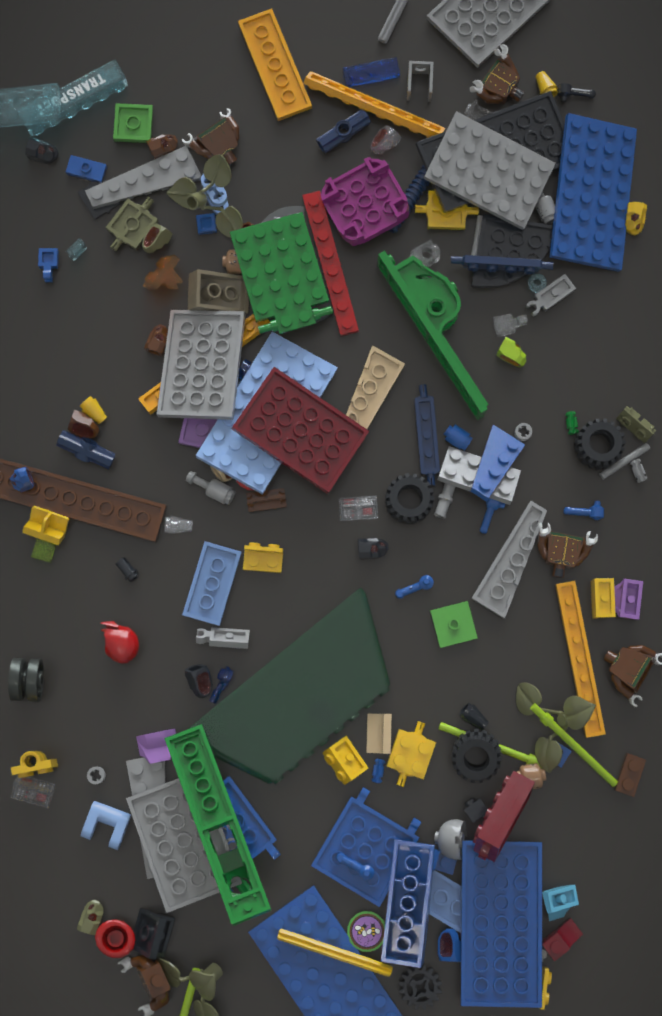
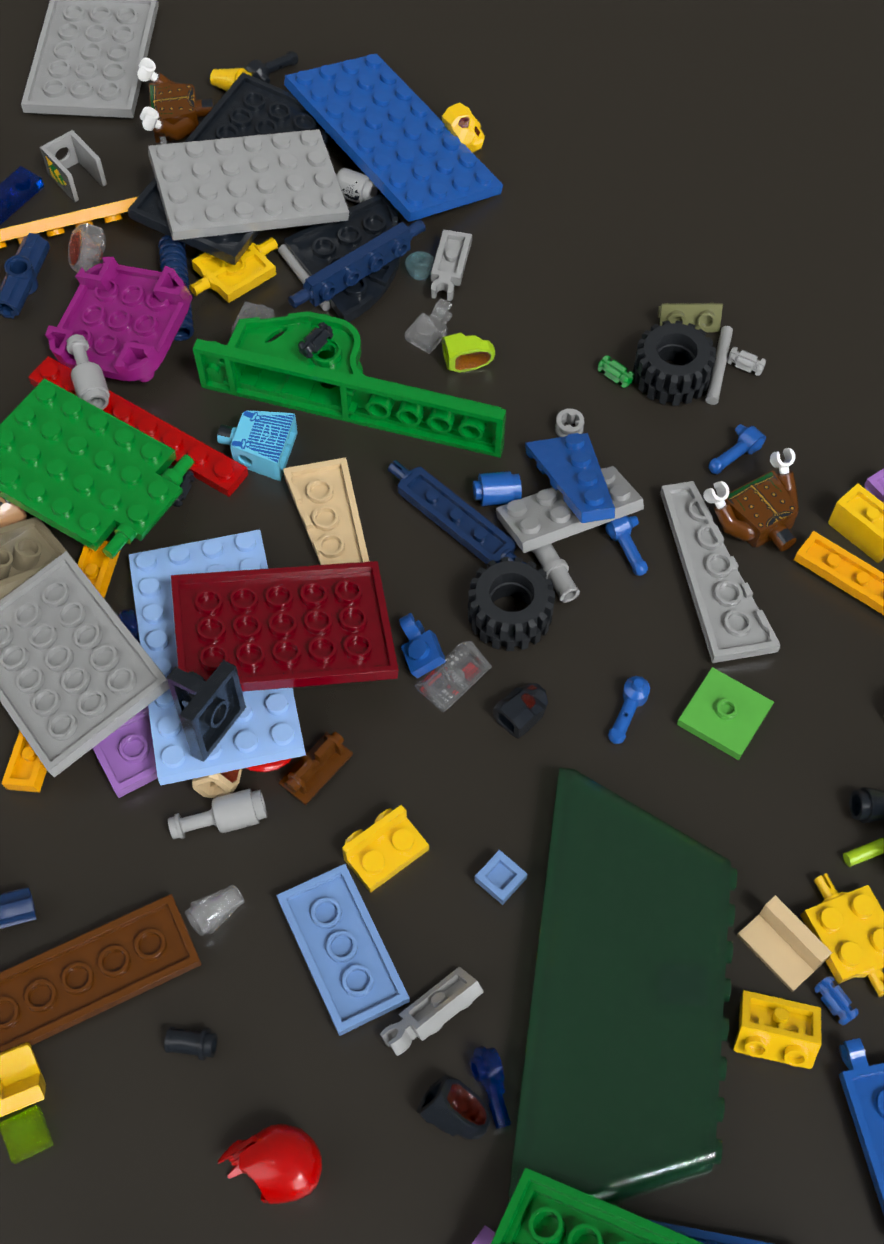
camera: 40 degrees left, 20 degrees down
(235, 447) = (206, 707): none -> black bracket
(296, 610) = (500, 877): none -> medium blue plate
(323, 224) = (87, 376): none -> light grey piece
(355, 486) = (423, 649): none -> blue plate
(375, 322) = (261, 441): none -> medium azure torso
(434, 299) = (315, 340): none -> black piece

